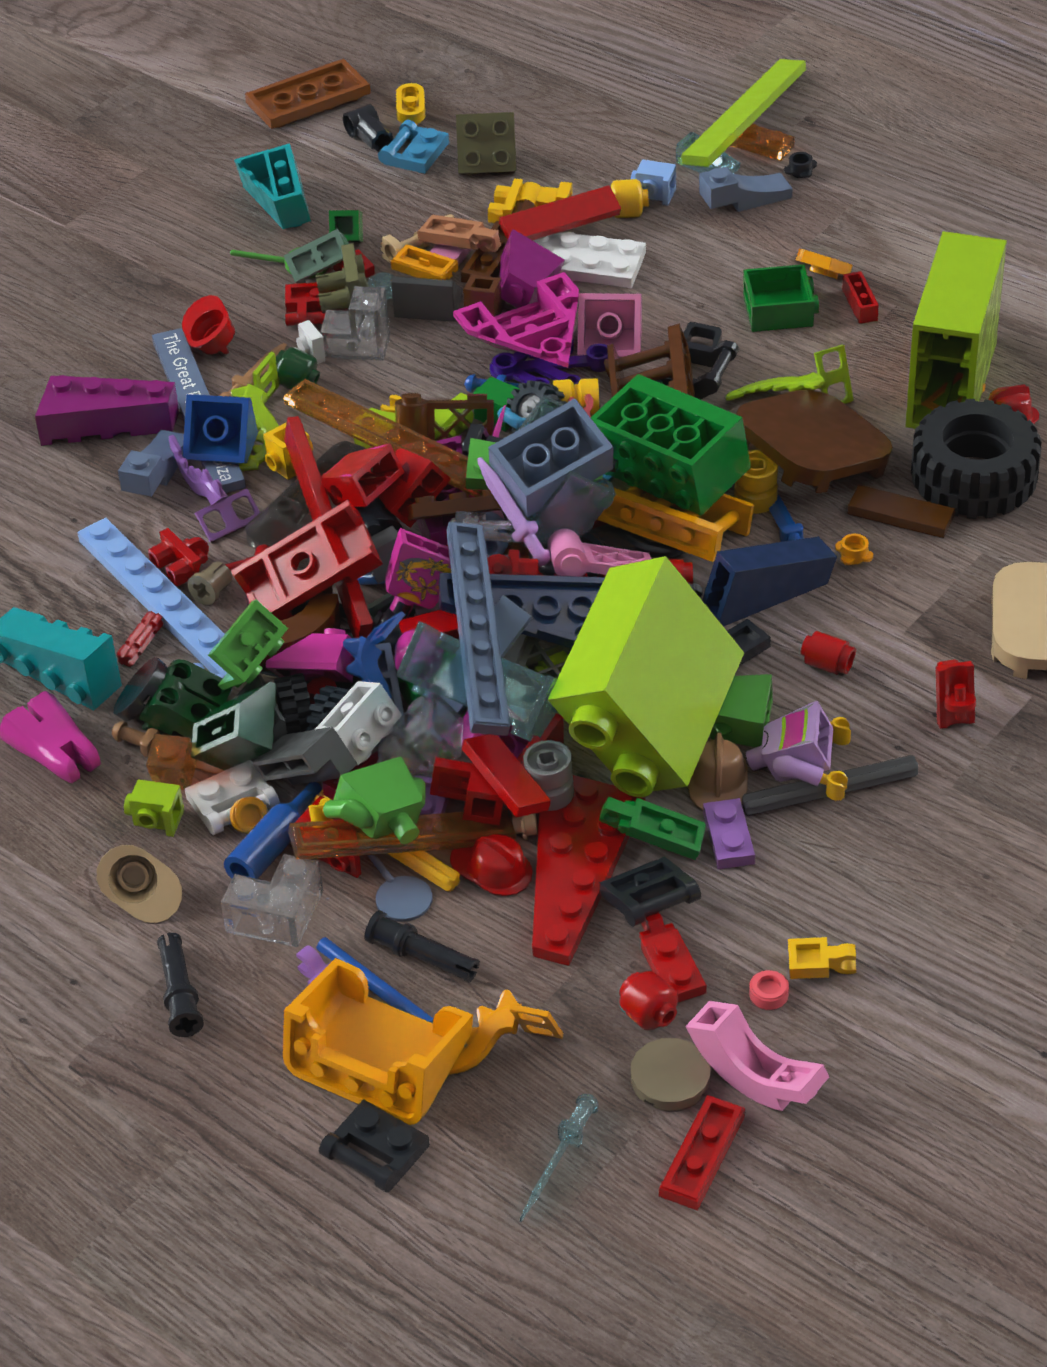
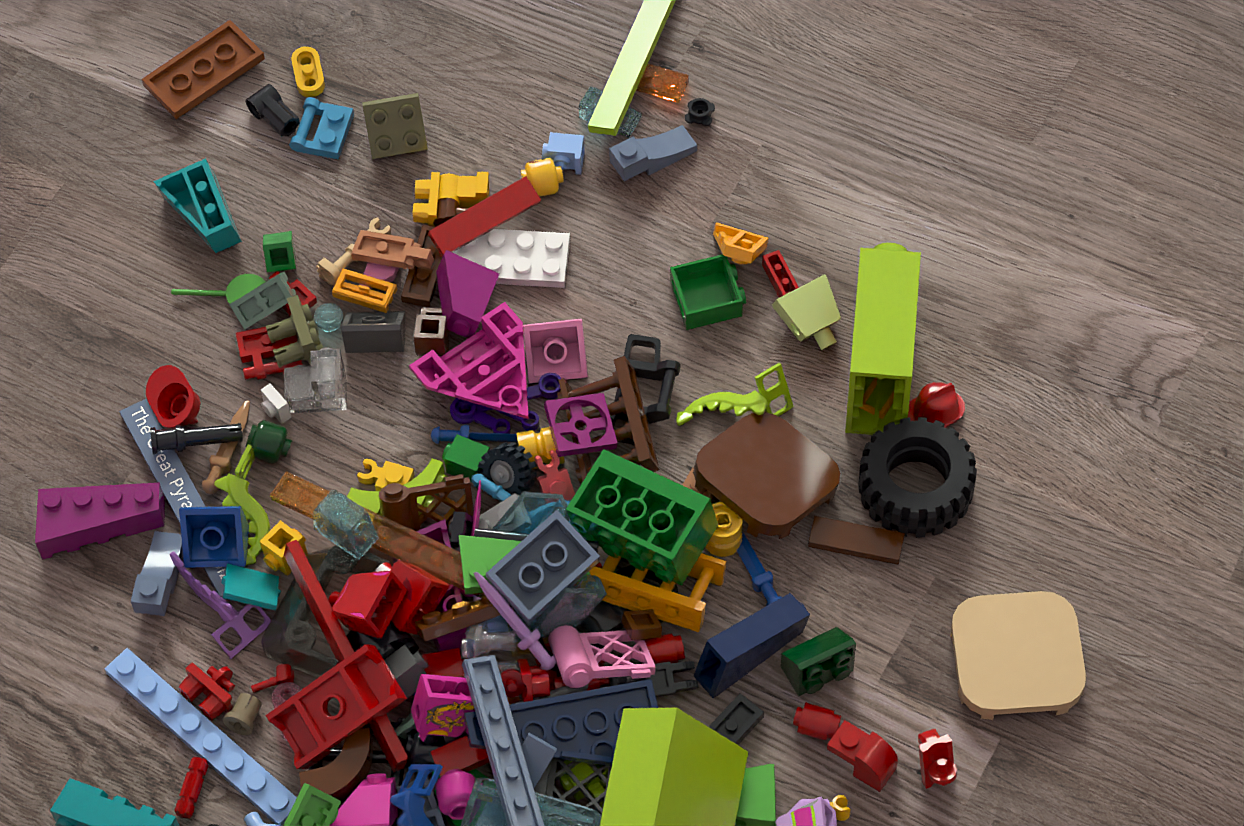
camera: 10 degrees left, 15 degrees up
(208, 355) = (180, 438): none -> black pin
(246, 477) = (251, 587): none -> teal piece
(352, 411) = (340, 519): none -> clear light blue torso
(619, 361) = (575, 404): none -> magenta piece
(650, 543) = (641, 624): none -> reddish brown plate
(840, 600) = (819, 661): none -> dark green slope
(854, 549) = (821, 585): light orange plate -> none
(882, 681) = (869, 754): none -> red brick
(883, 318) = (810, 311): none -> yellowish green torso

